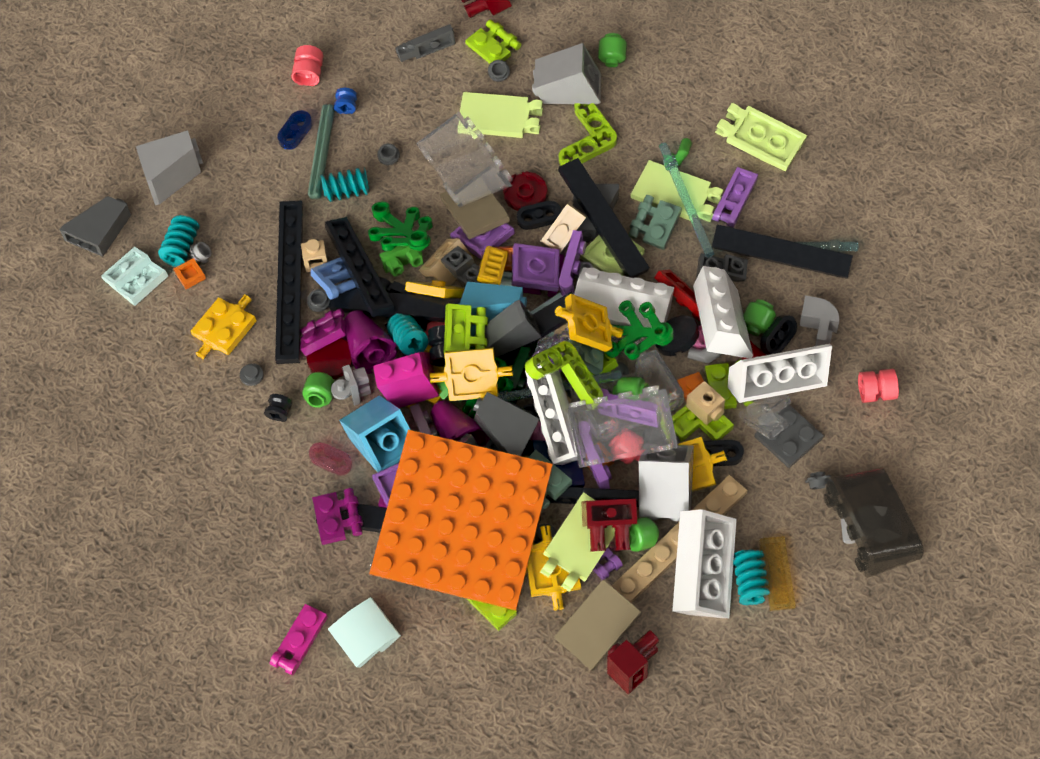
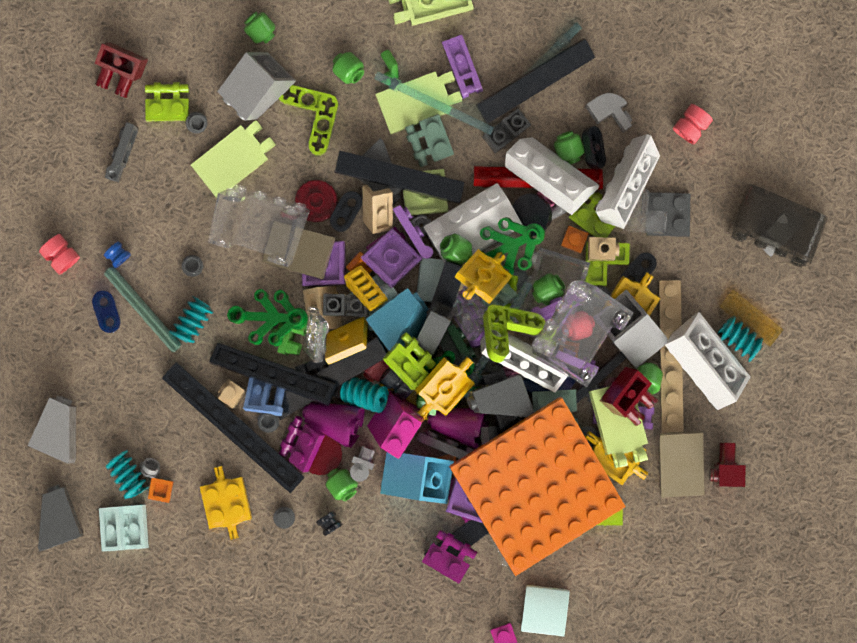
camera: 55 degrees left, 25 degrees up
(332, 454) = (397, 517): clear pink beam -> none
(419, 264) = (315, 337): none -> clear plate
(591, 290) = (456, 249): none -> bright green head
(647, 126) = (348, 67): none -> bright green head
(817, 480) = (718, 230): dark grey plate -> none

